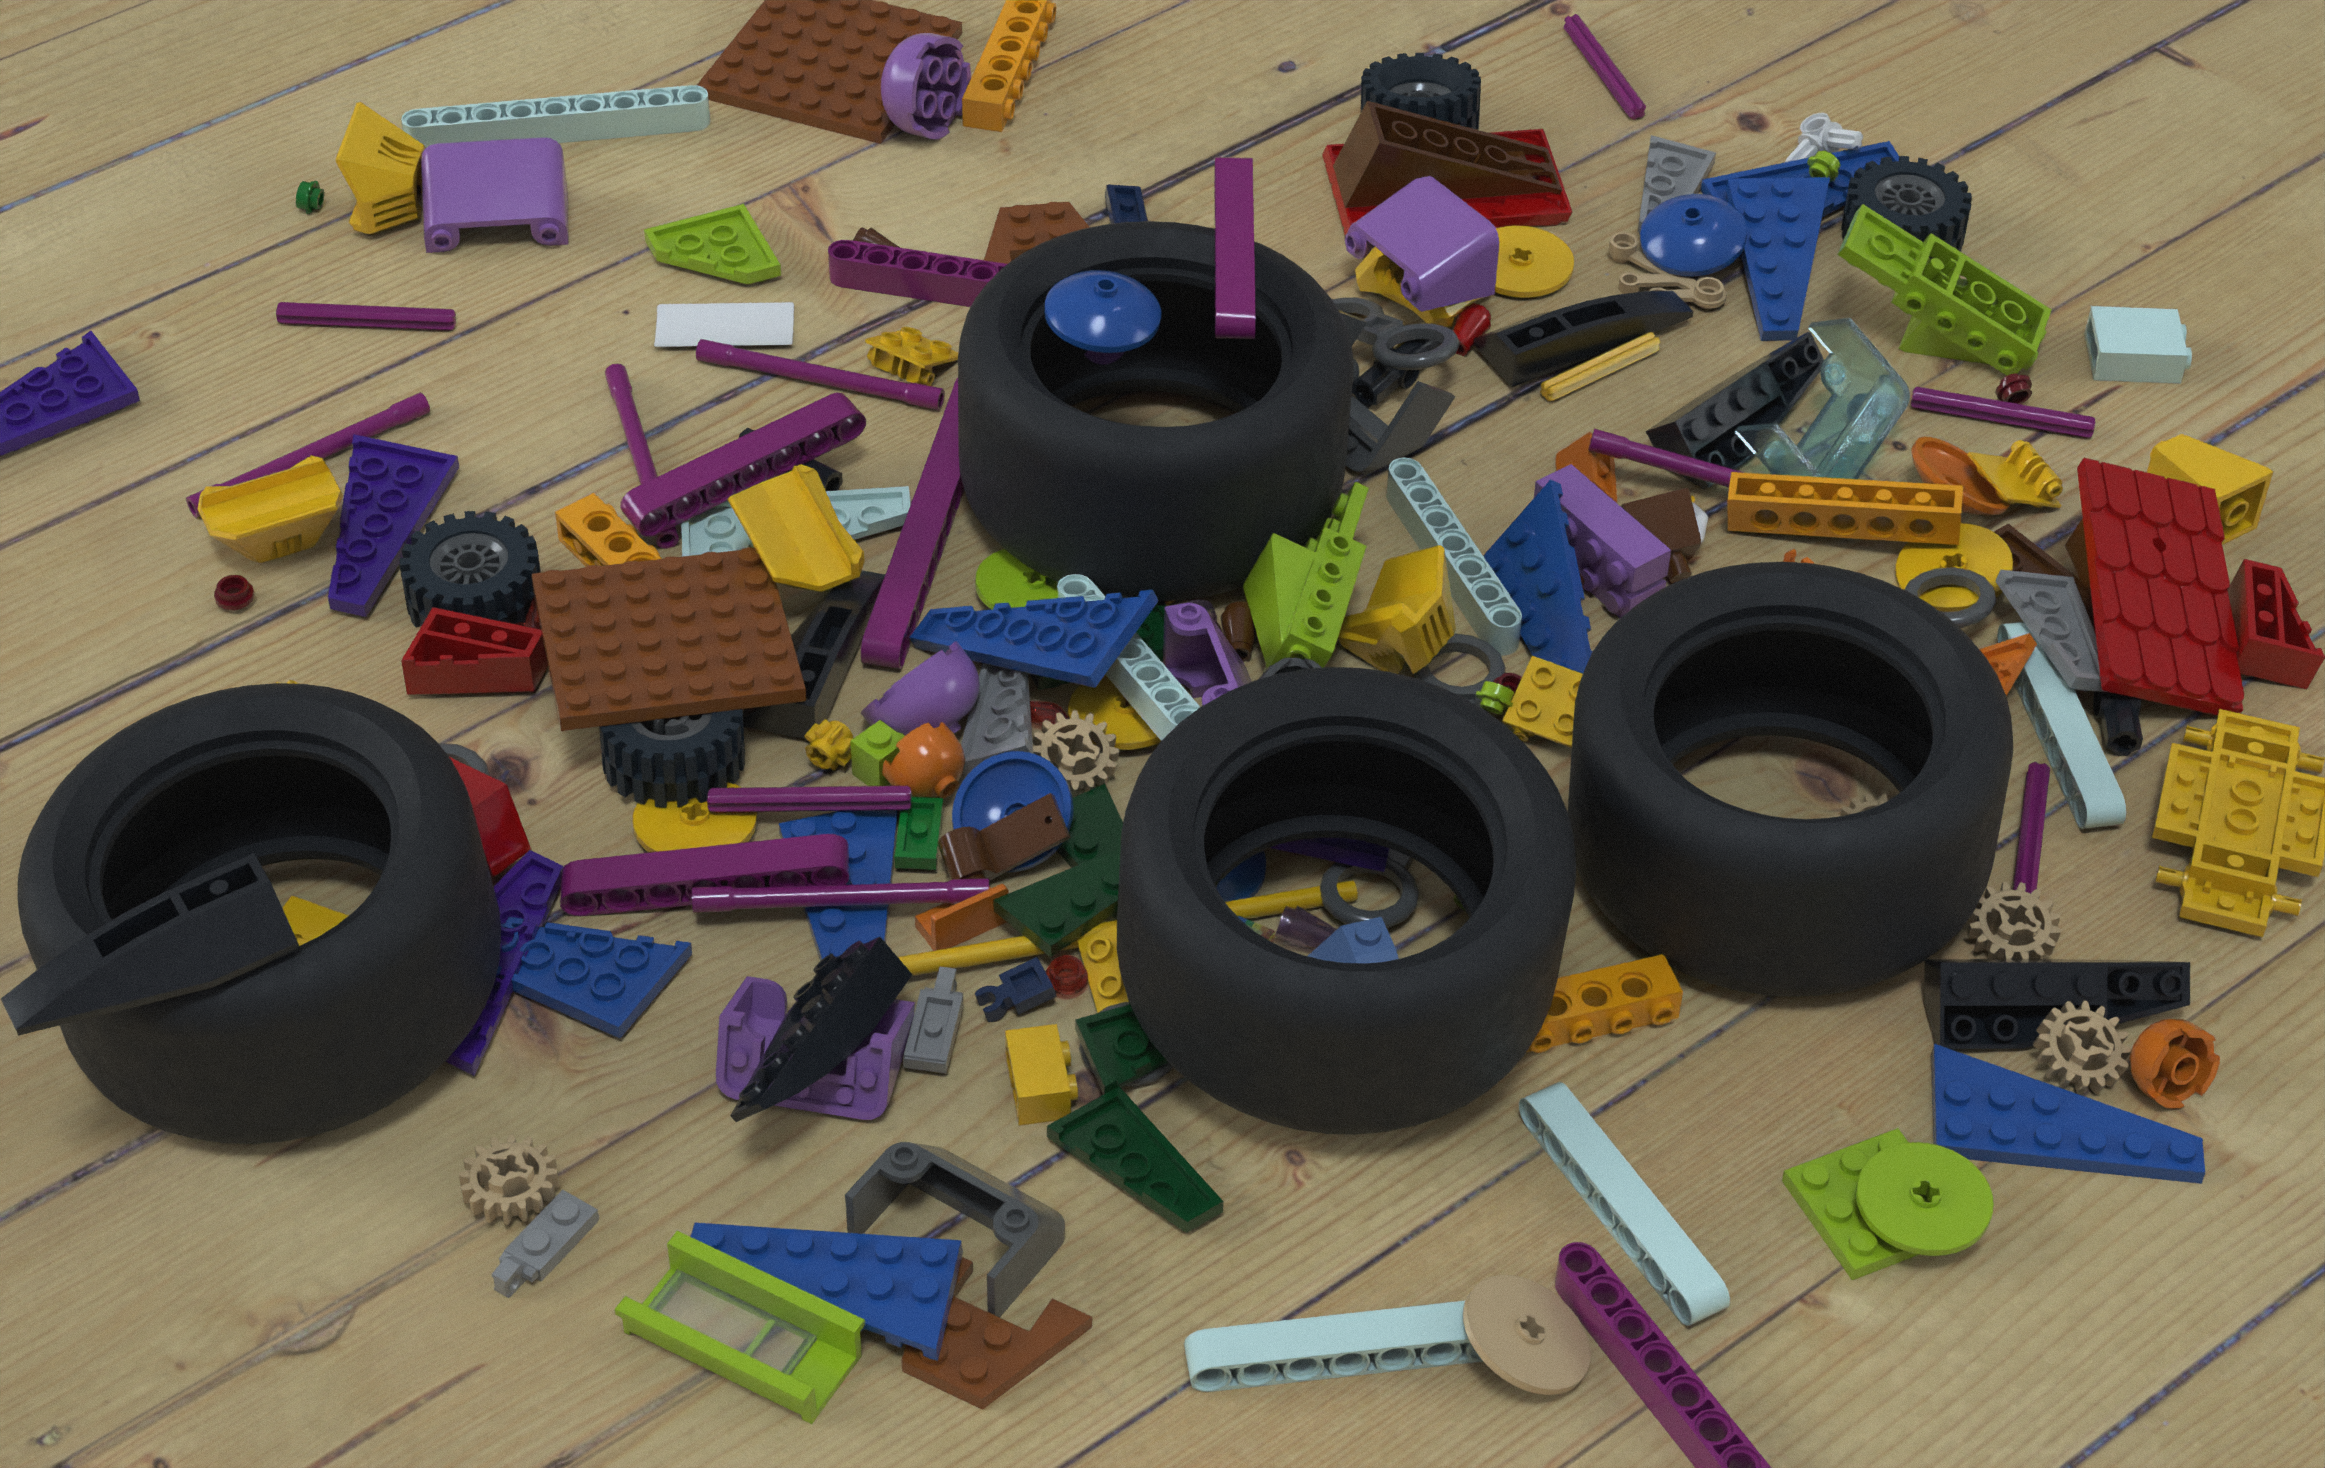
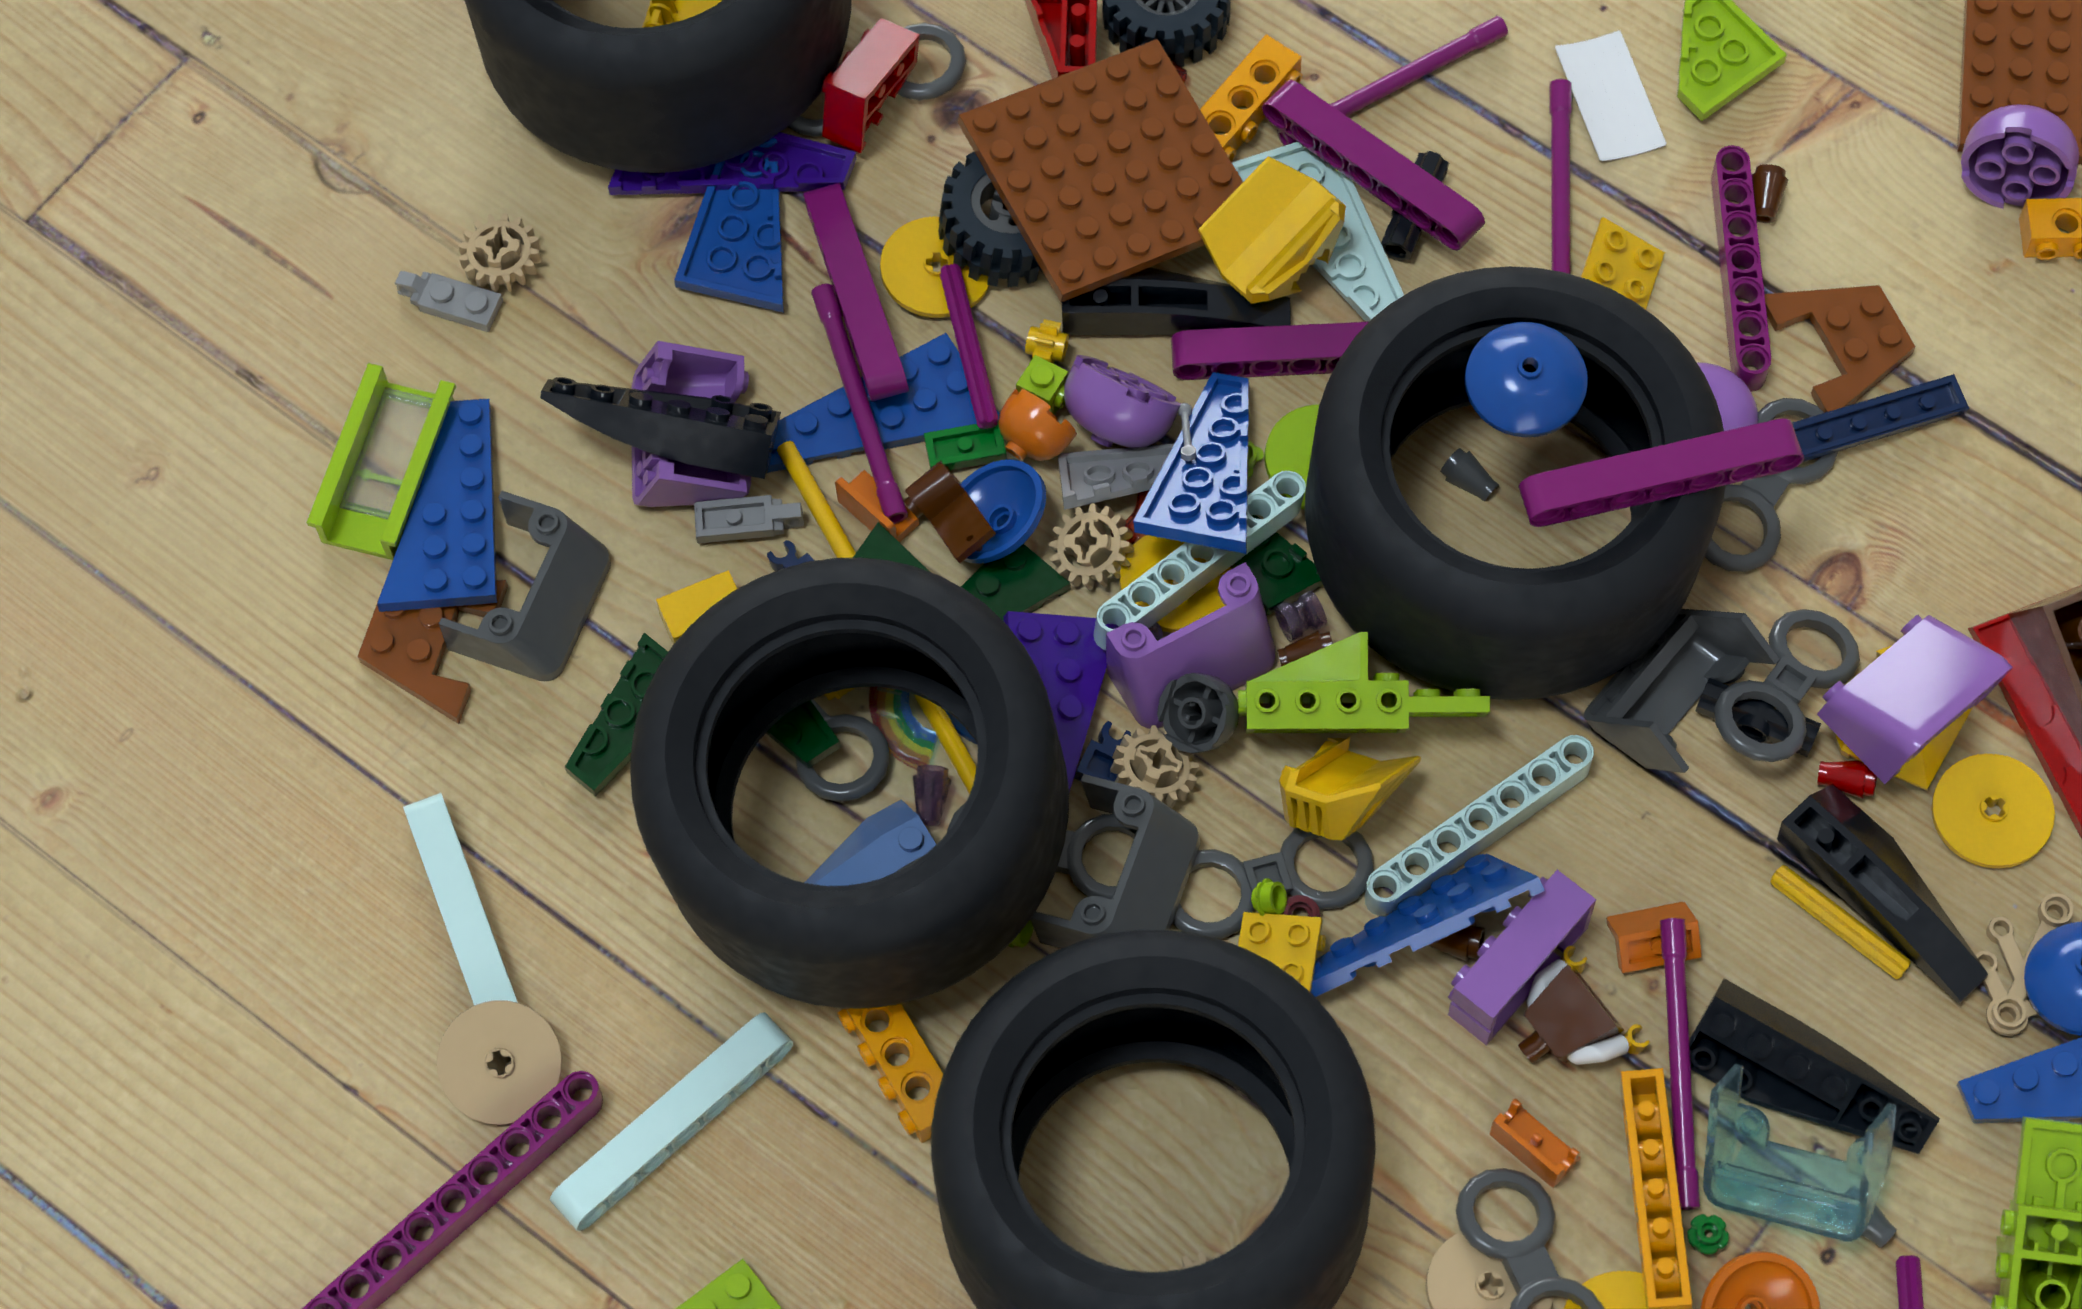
camera: 80 degrees right, 20 degrees up
(1015, 640) = (1188, 452): none -> light grey hinge

